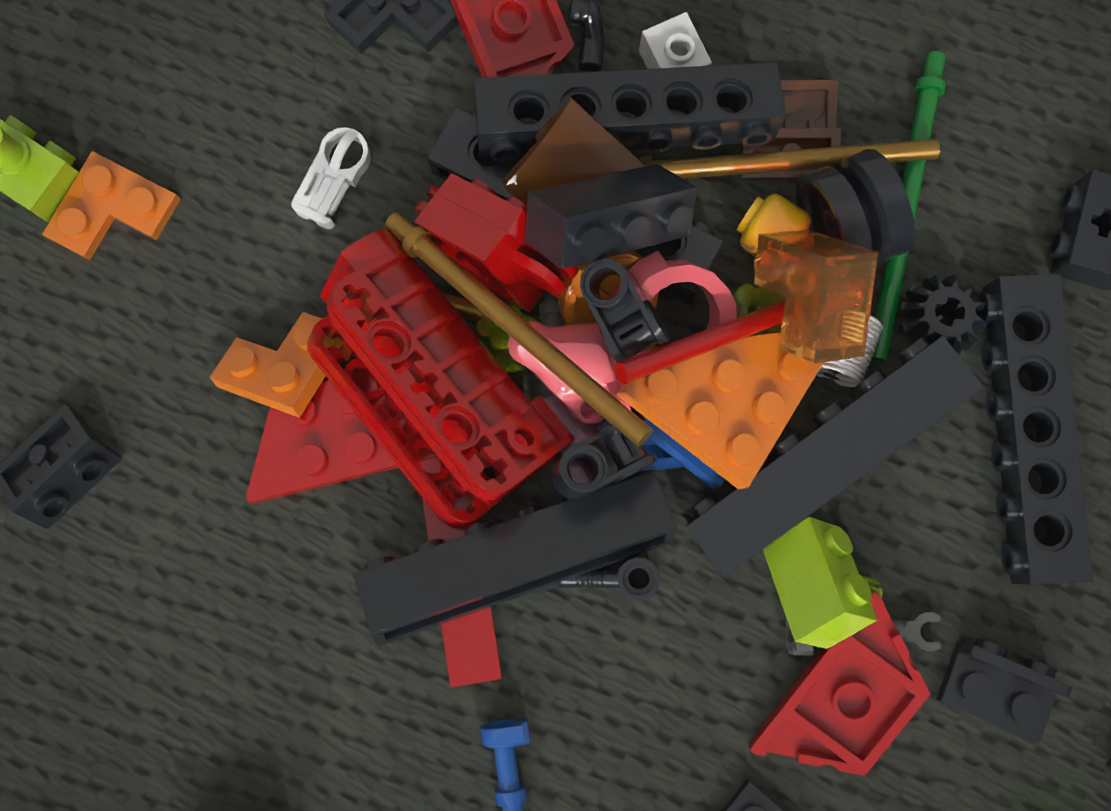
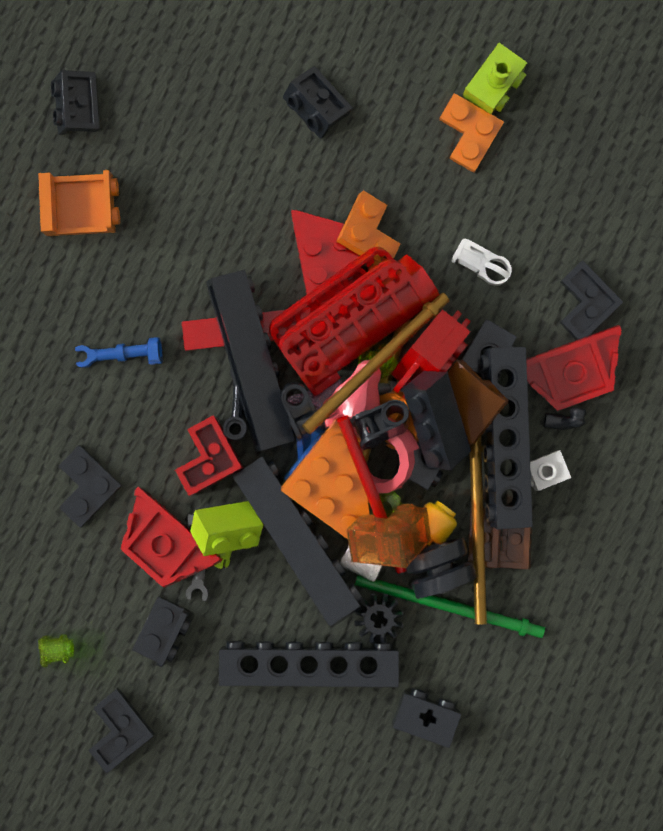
camera: 95 degrees right, 5 degrees up
(700, 609) = (216, 460): none -> red brick

